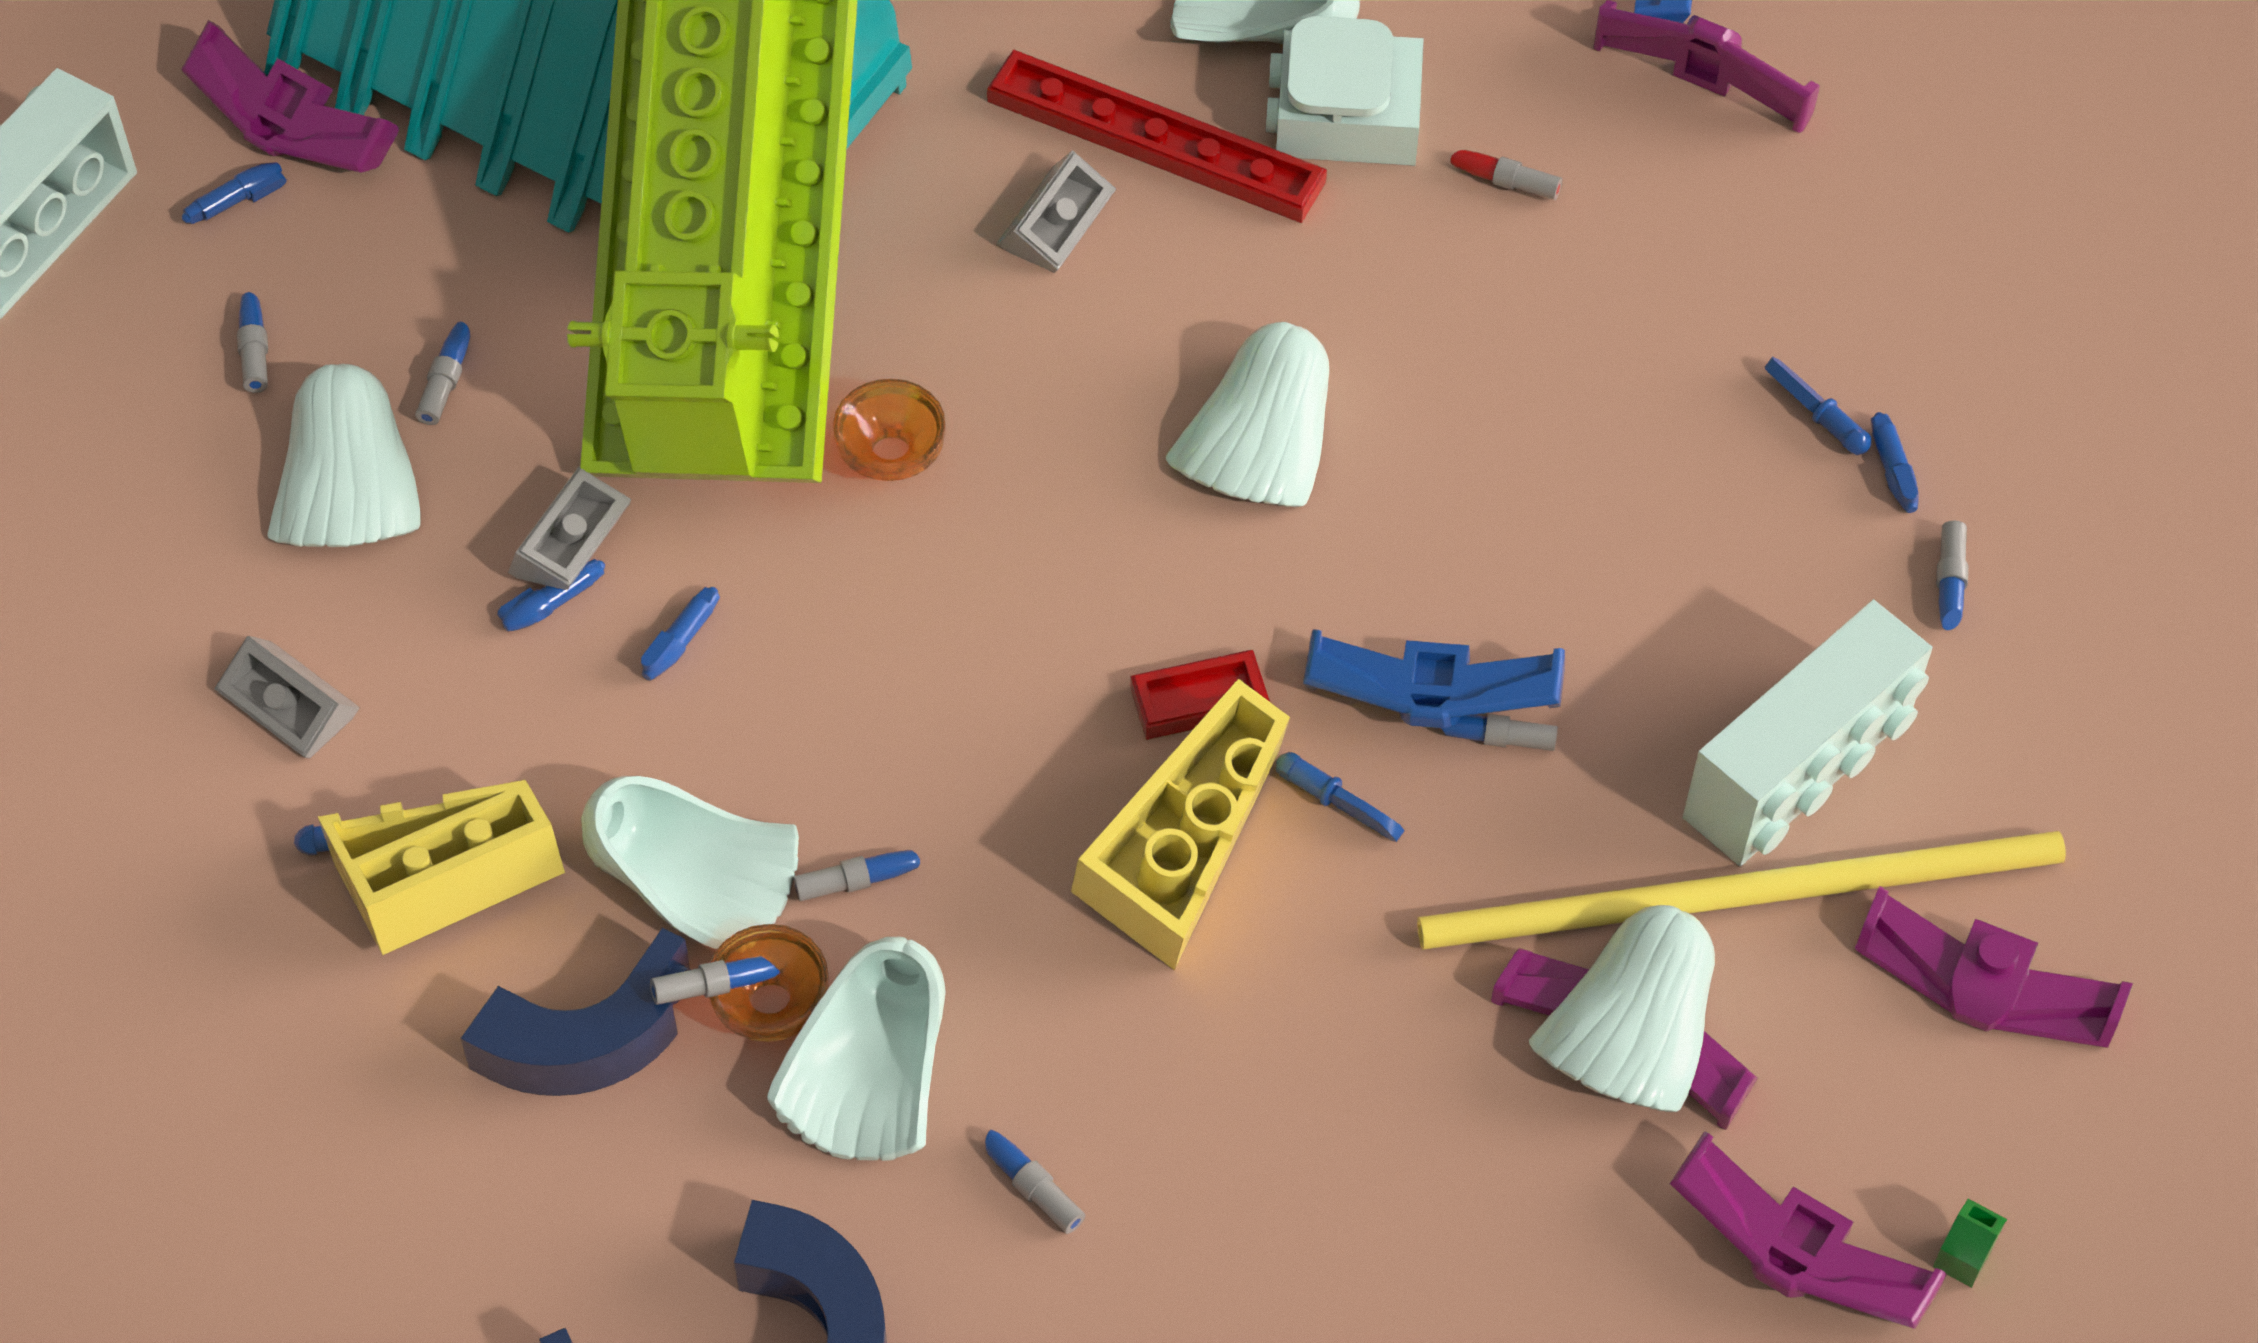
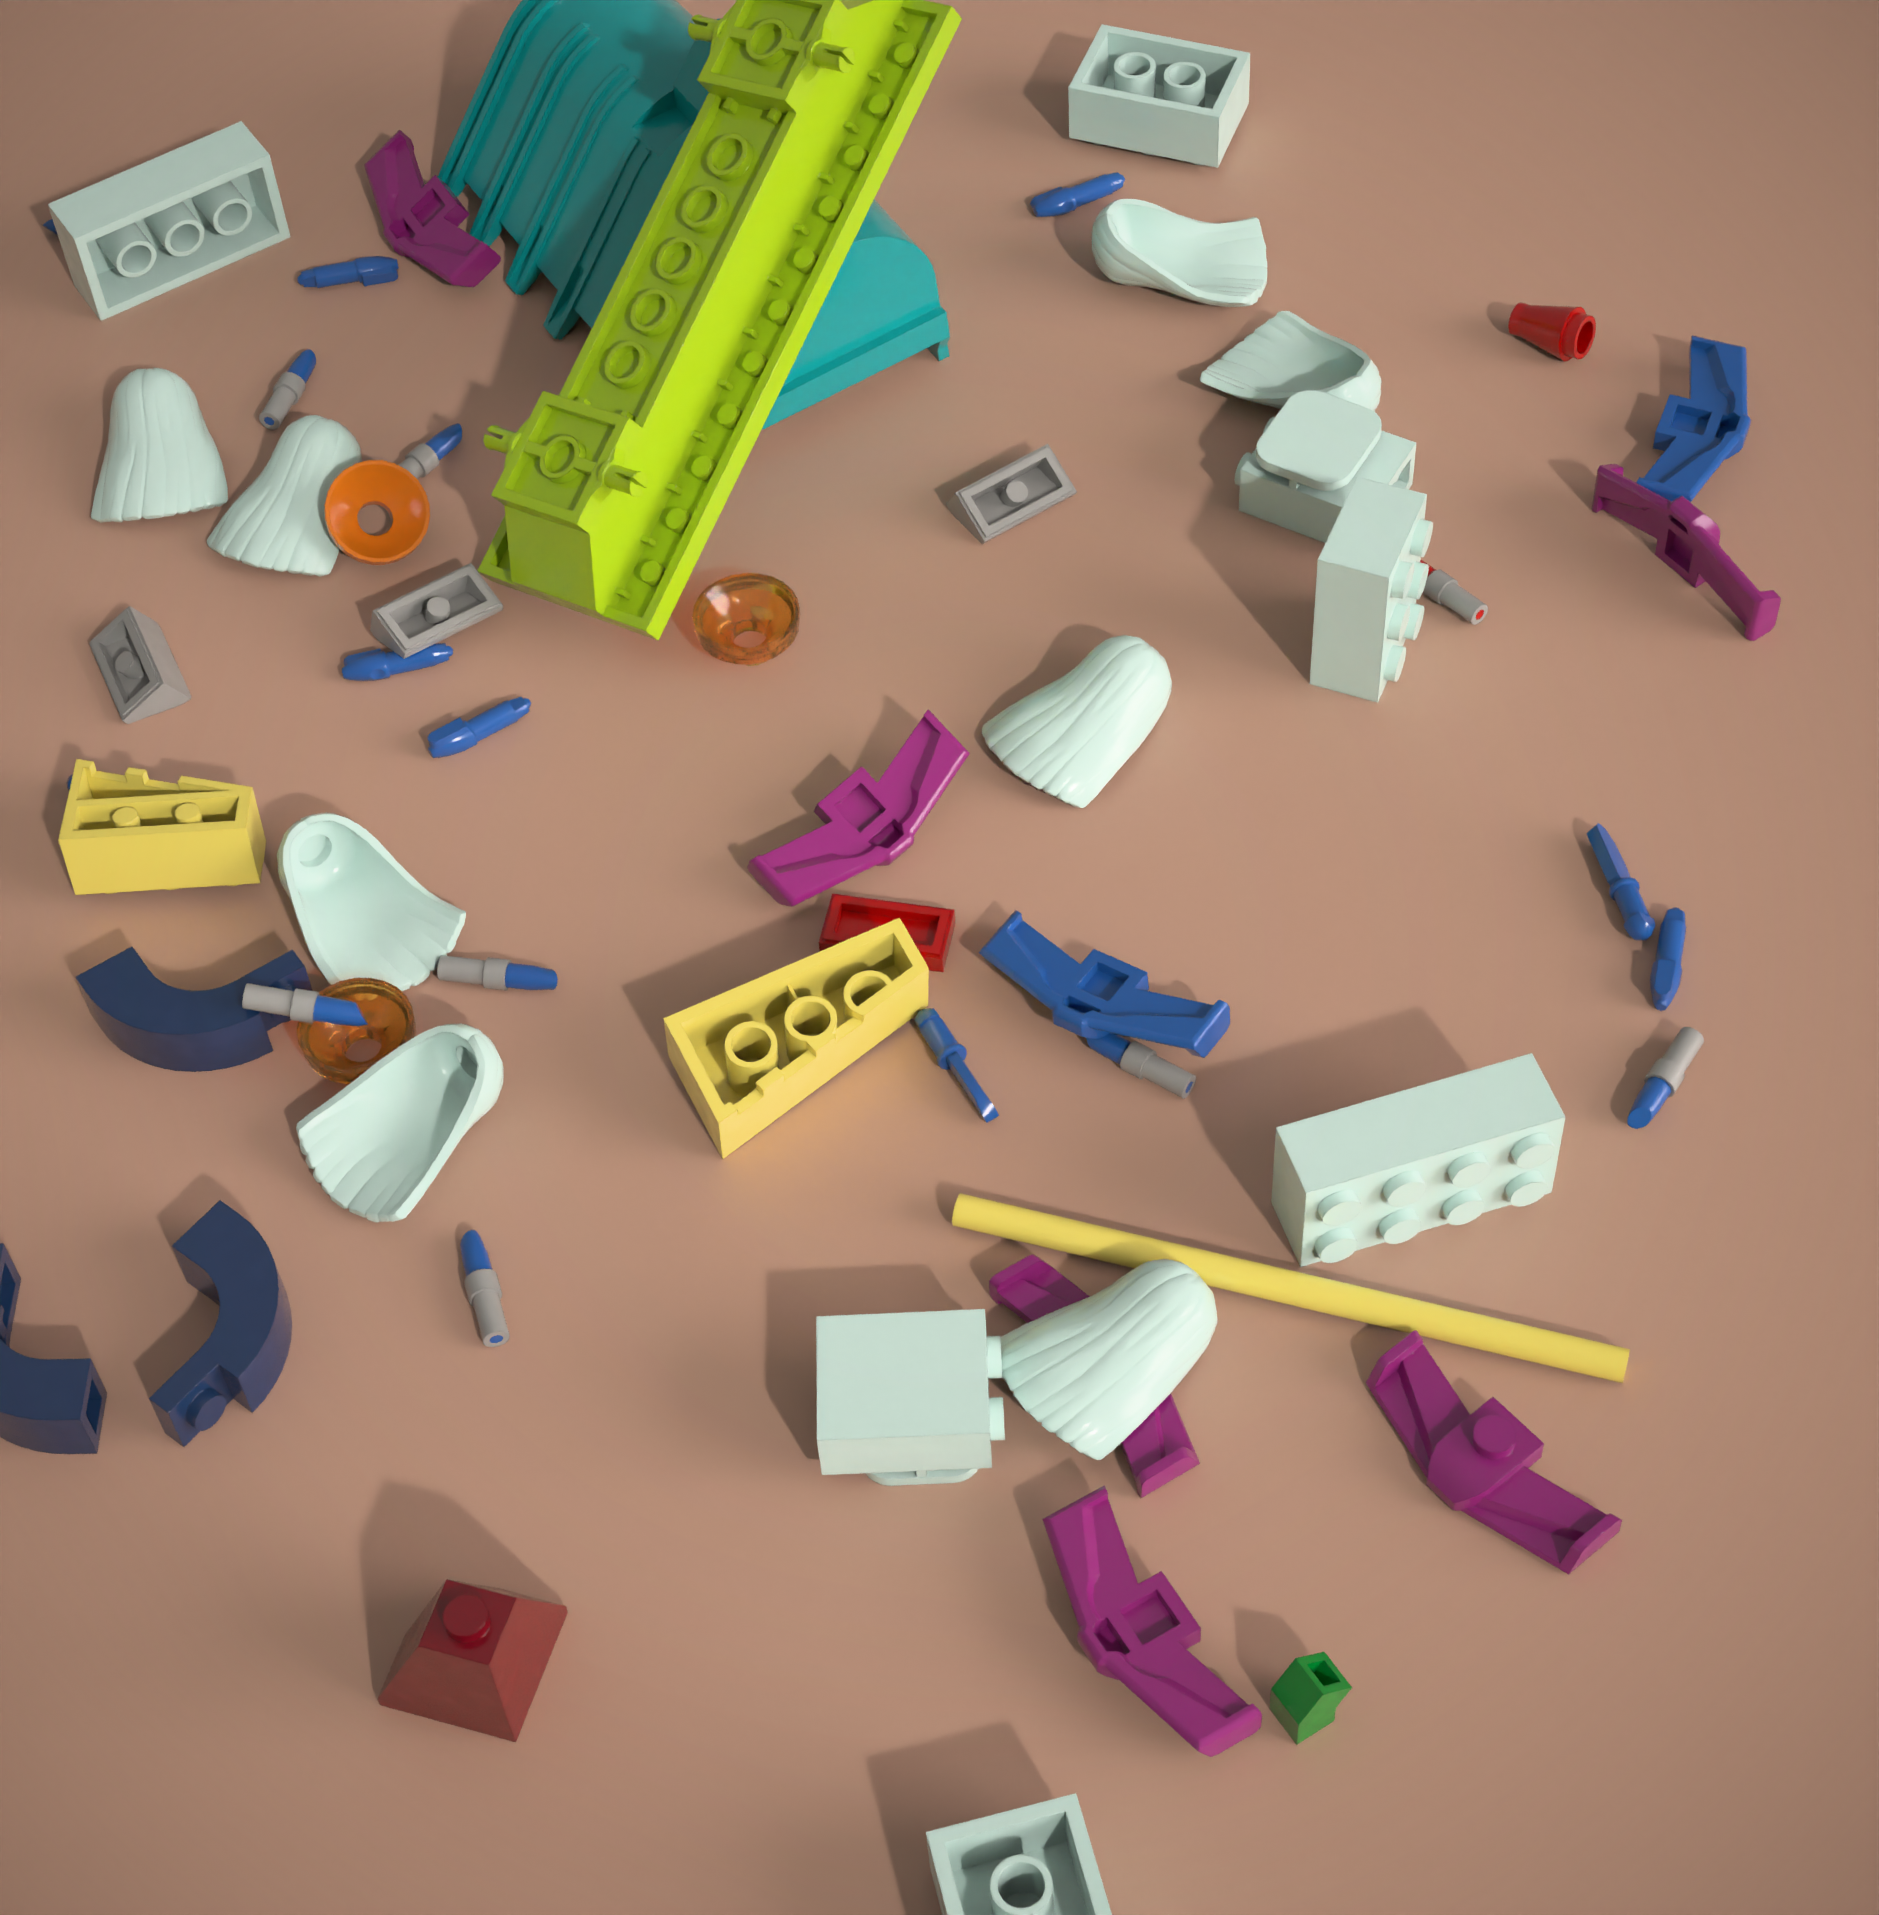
camera: 30 degrees right, 5 degrees down
(160, 461) = (157, 452): none -> light aqua hair
(472, 433) = (382, 485): none -> orange piece
(1121, 590) = (865, 819): none -> magenta plate
(1157, 136) = (1142, 461): red tile -> none
(1478, 203) = (1369, 589): none -> light aqua brick
(1493, 1121) = (907, 1395): none -> light aqua brick

